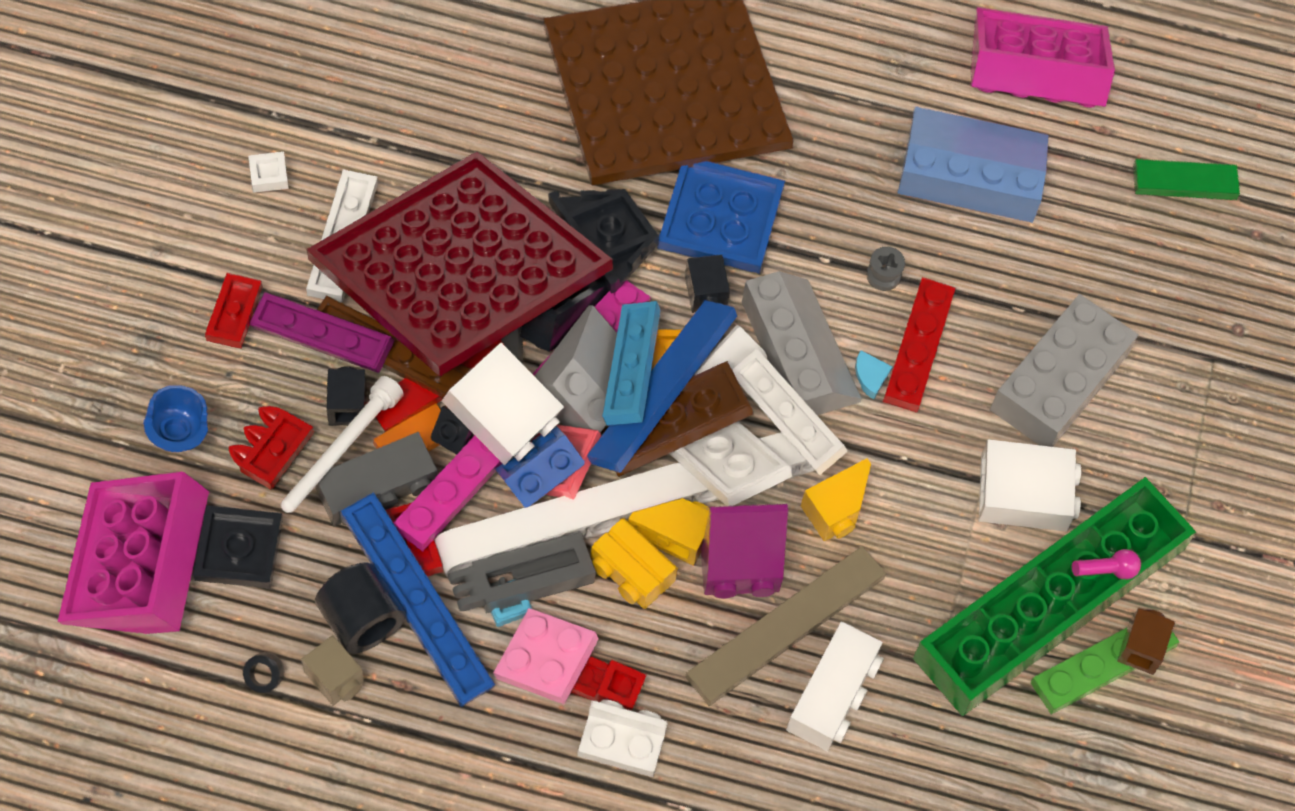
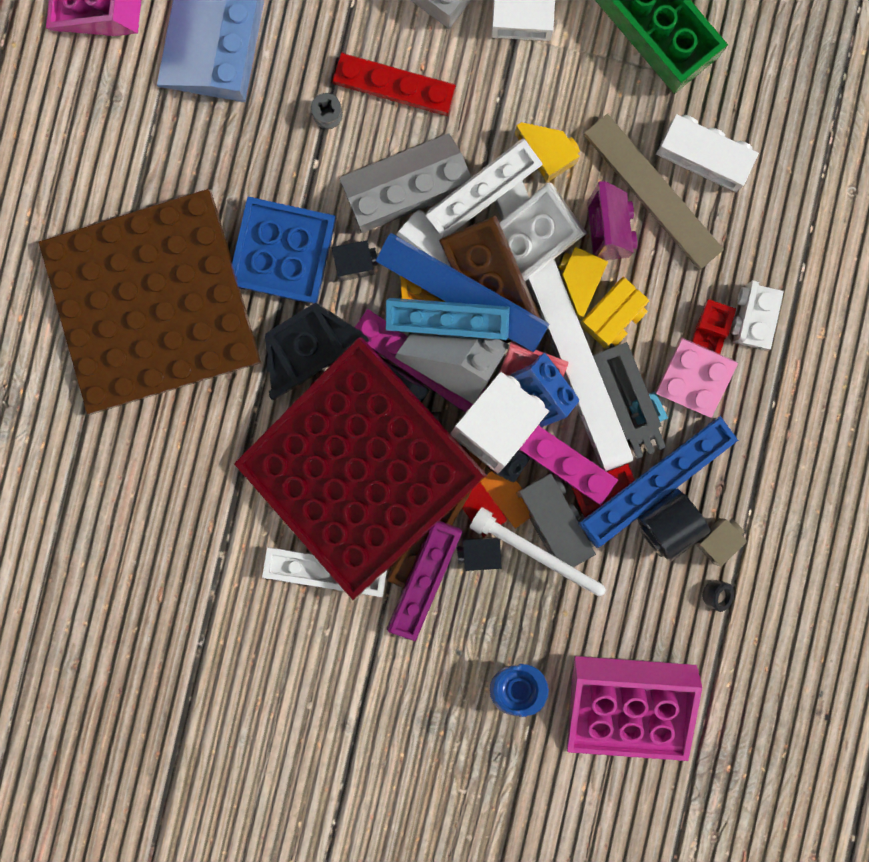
camera: 85 degrees left, 25 degrees up
(233, 310) = (404, 655): red plate -> none
(238, 547) = (619, 627): black plate -> none
(268, 172) = (266, 641): white plate -> none
(273, 446) = (530, 609): red plate -> none
(871, 373) = (426, 124): medium azure tile -> none

